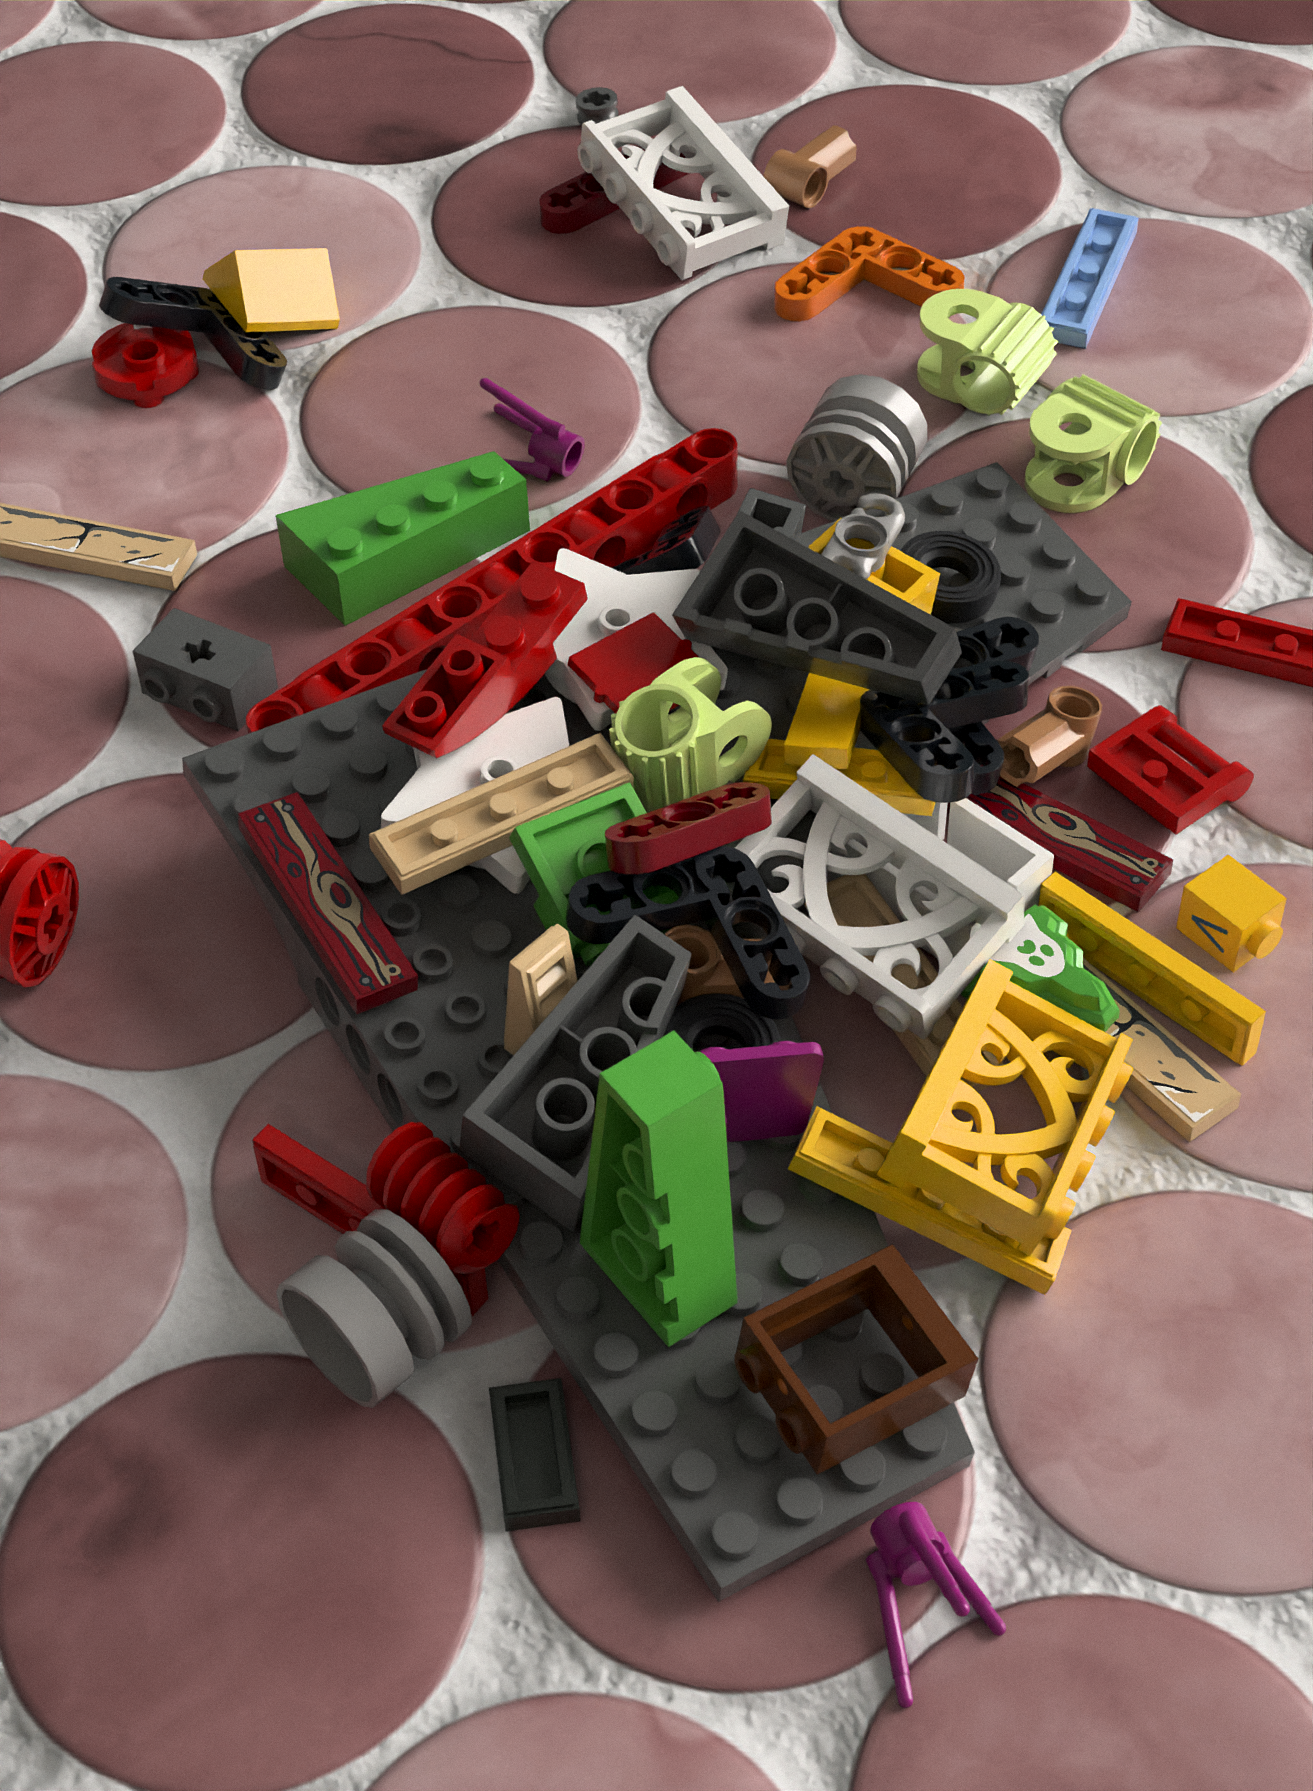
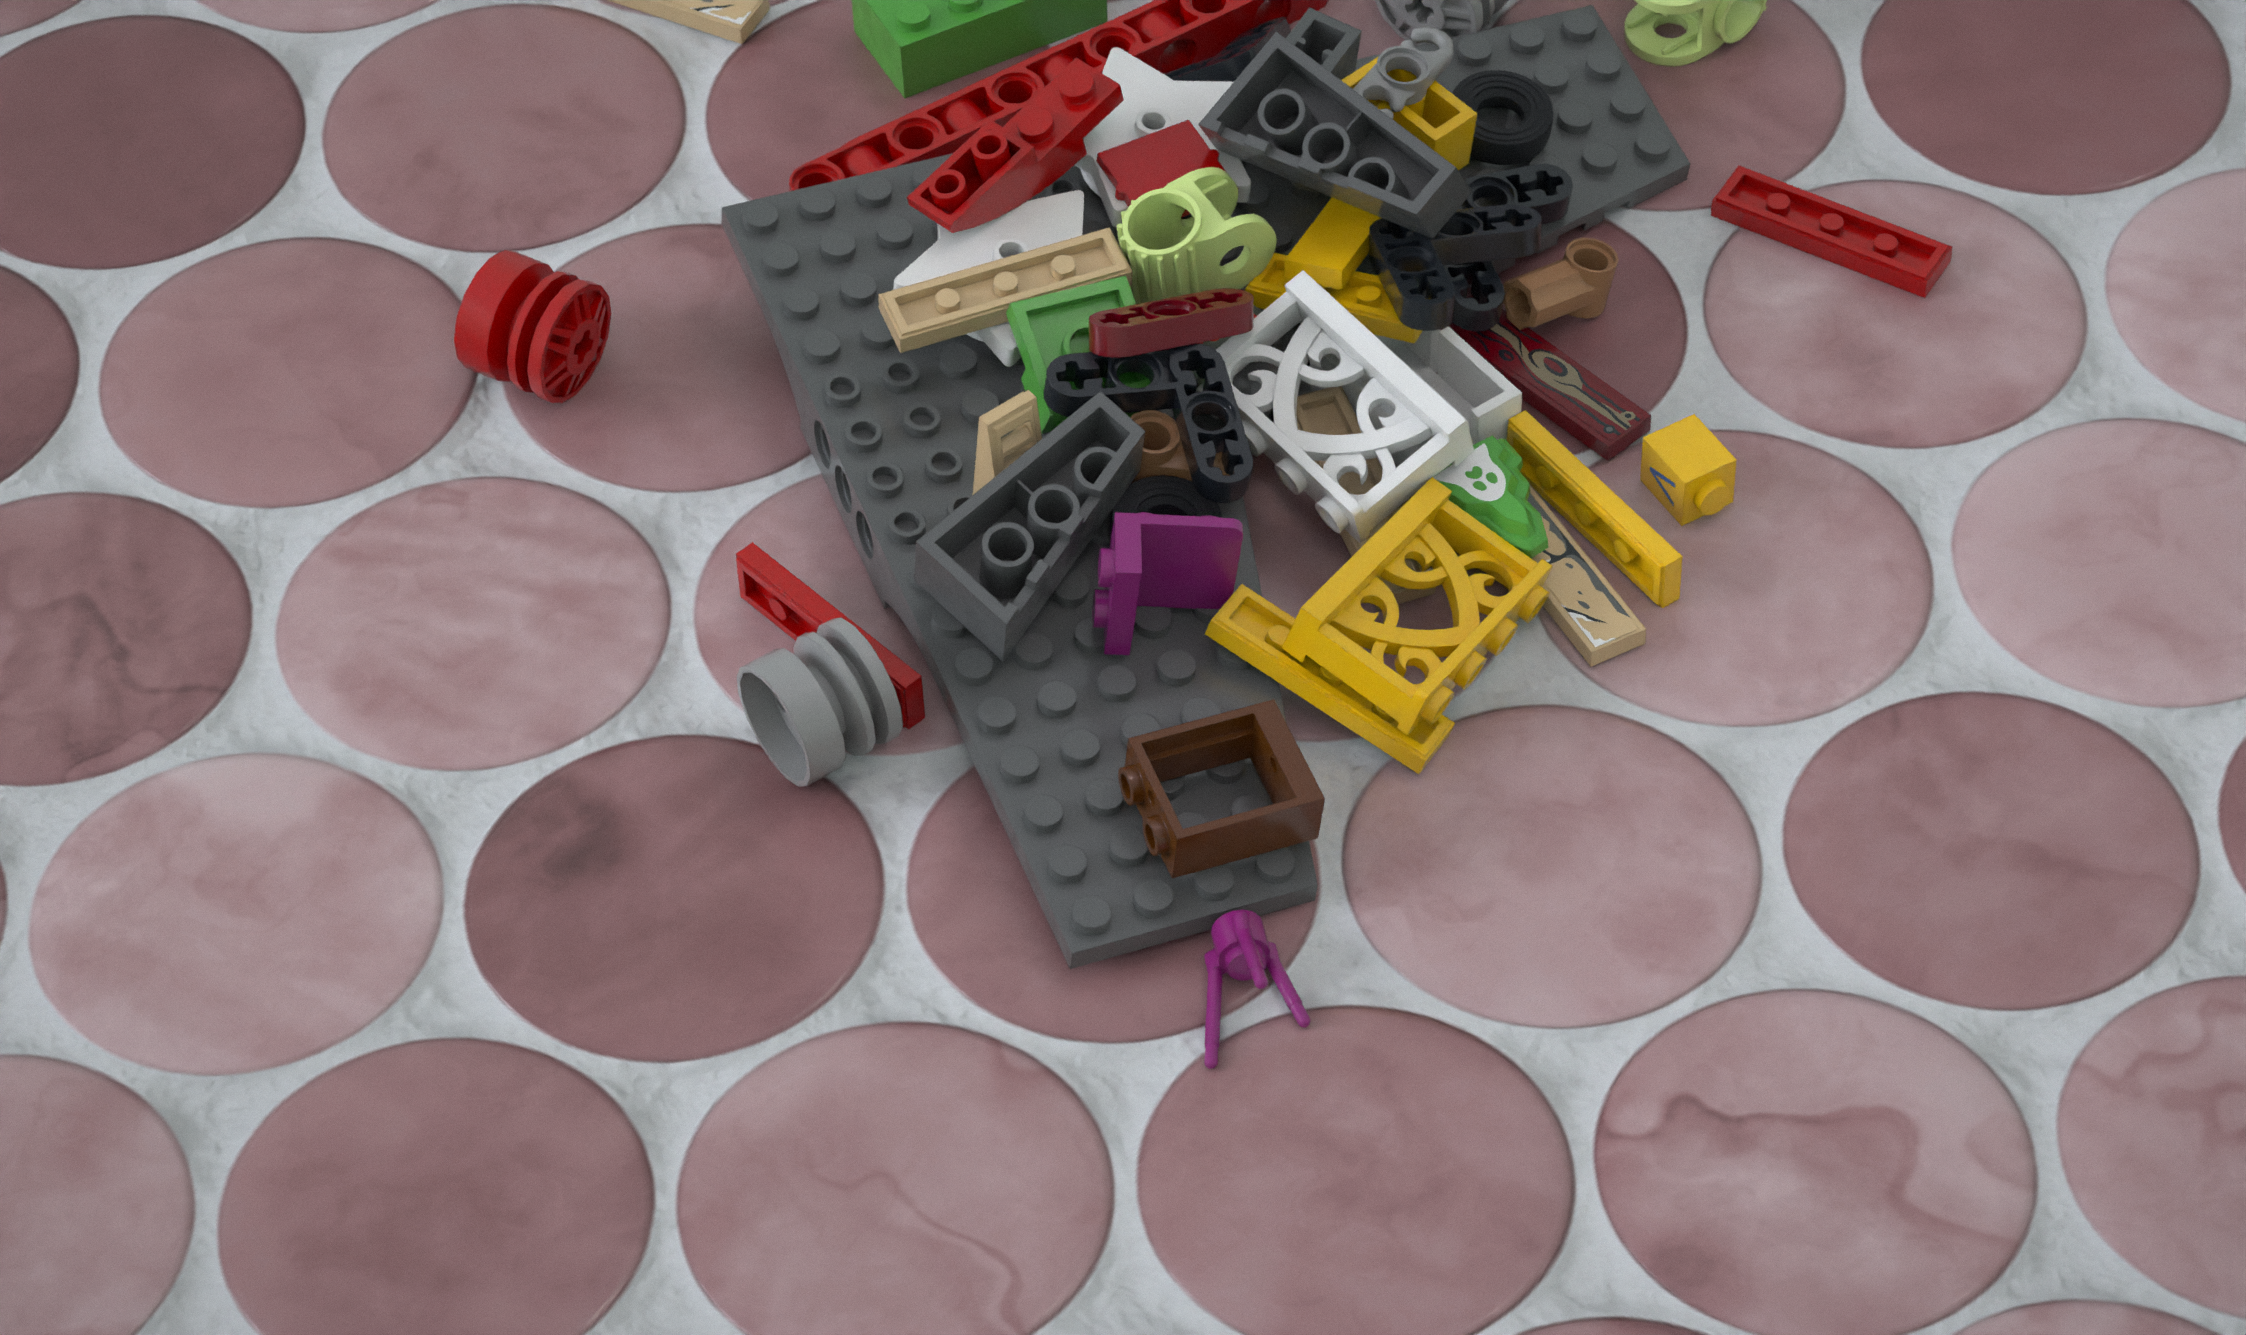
camera: 10 degrees right, 0 degrees up
(205, 668) = (758, 125): dark grey brick -> none
(328, 903) = (833, 352): dark red tile -> none
(441, 1198) = (892, 616): red piece -> none
(534, 1455) = (939, 841): pearl dark grey tile -> none
(662, 1188) = (1073, 620): bright green wedge -> none
(1159, 779) = (1664, 341): red plate -> none

